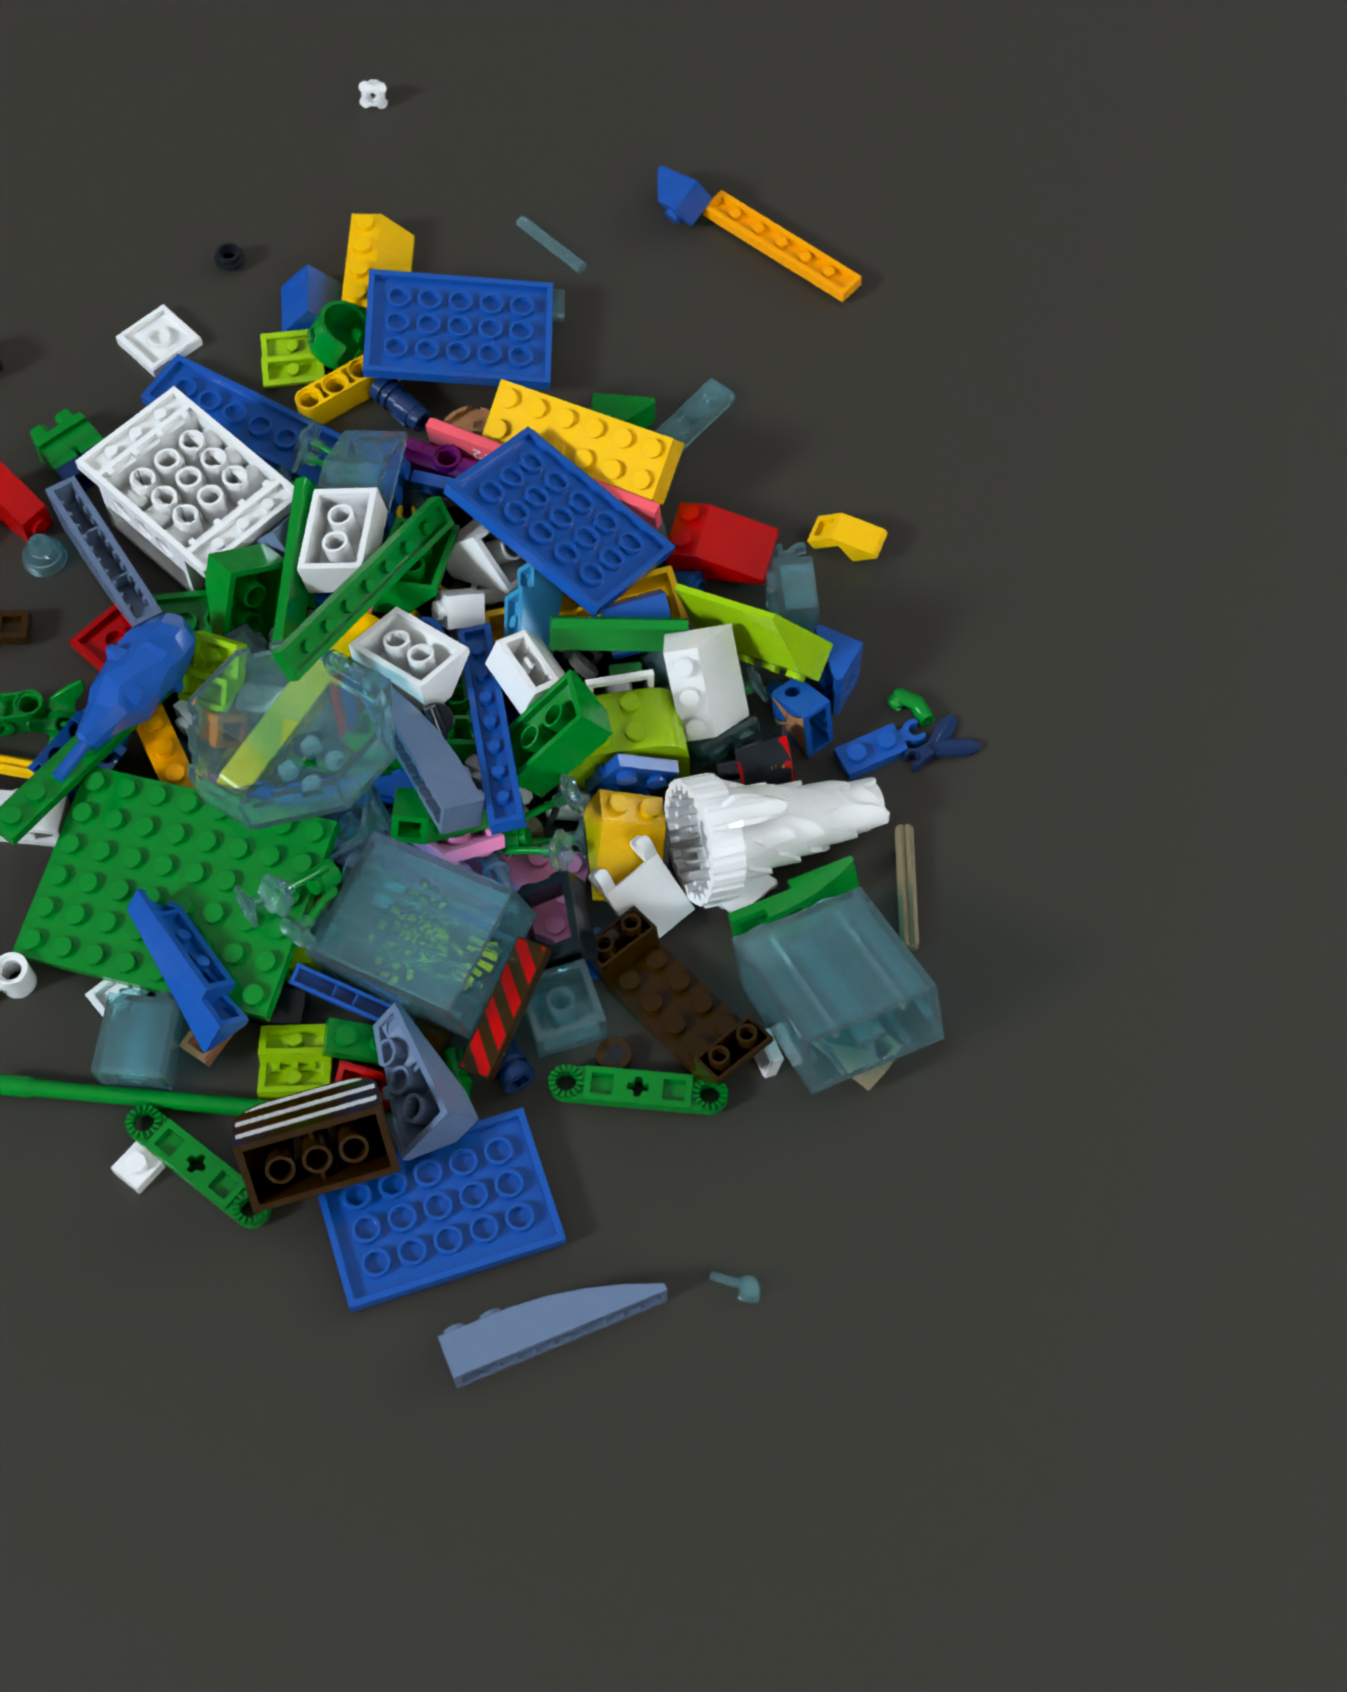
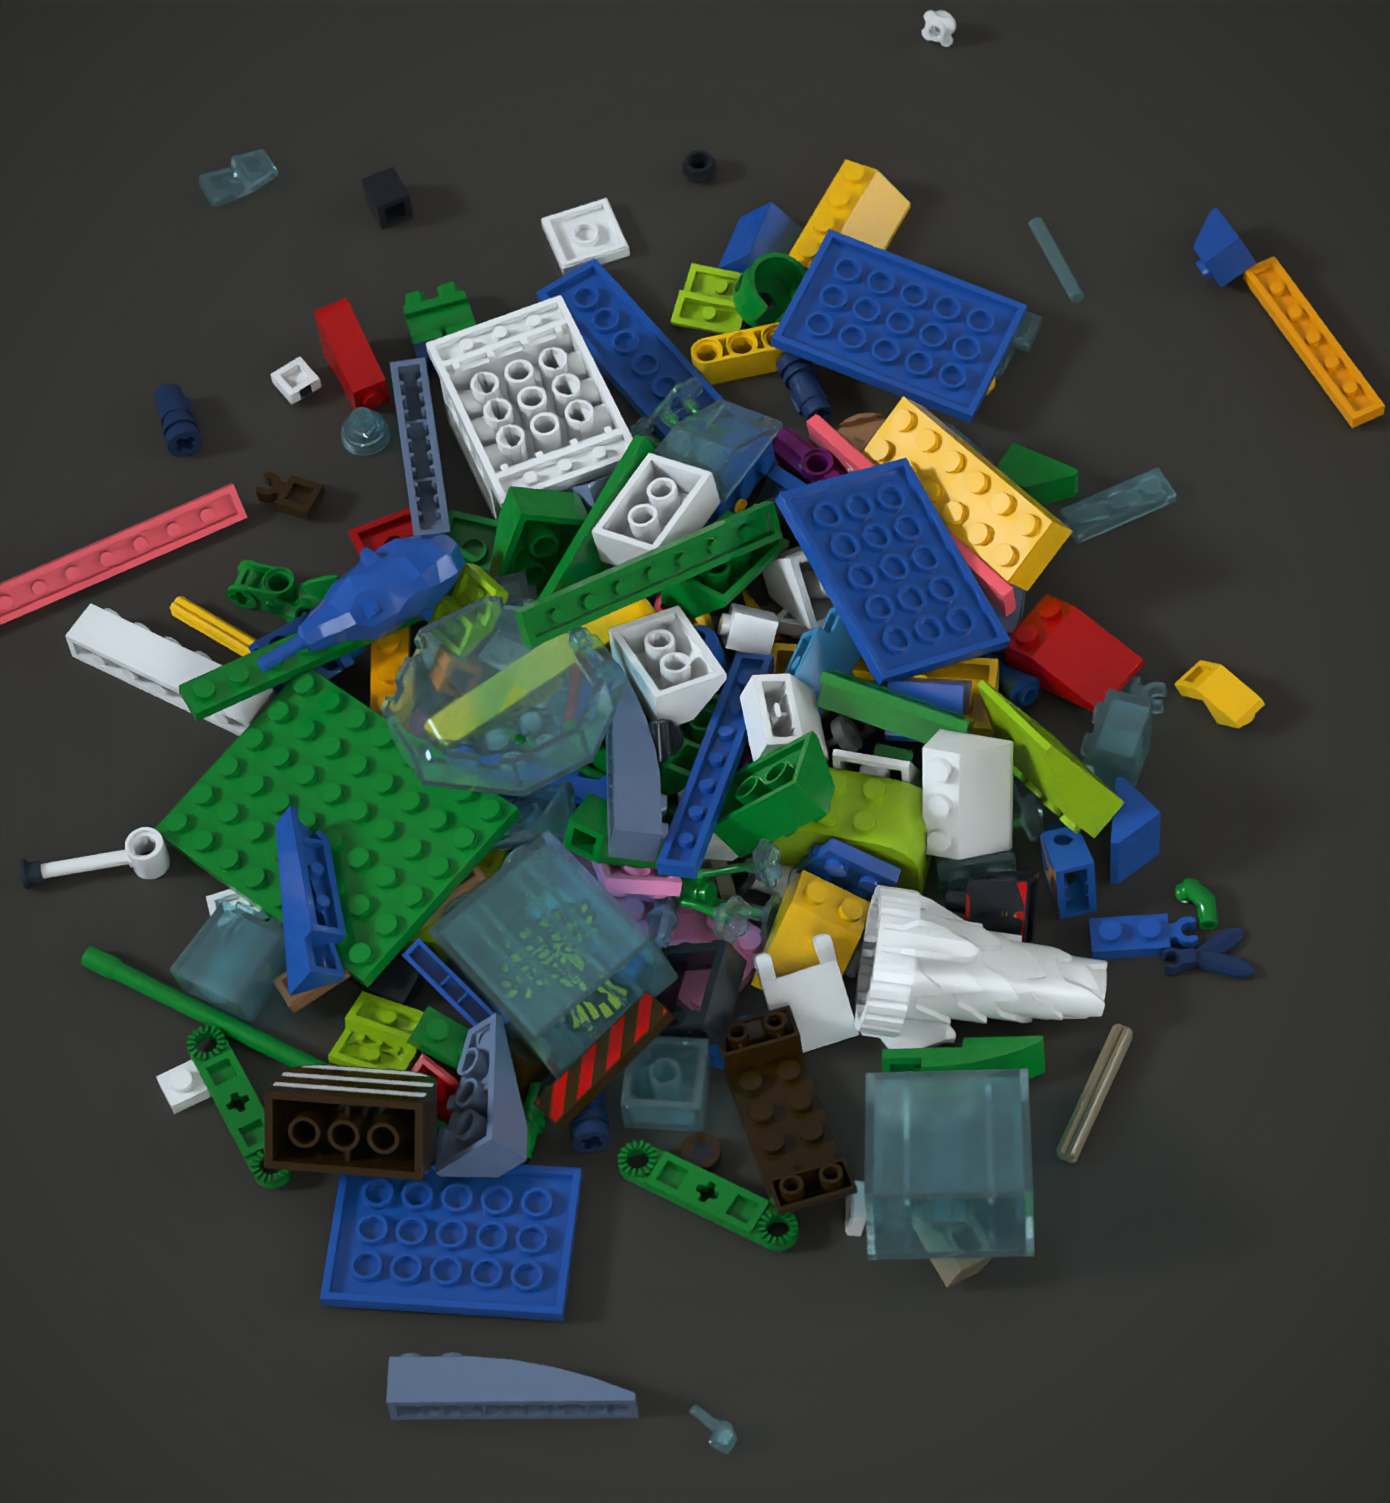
camera: 30 degrees right, 5 degrees down
(278, 898) = (412, 859): clear light blue plant -> none

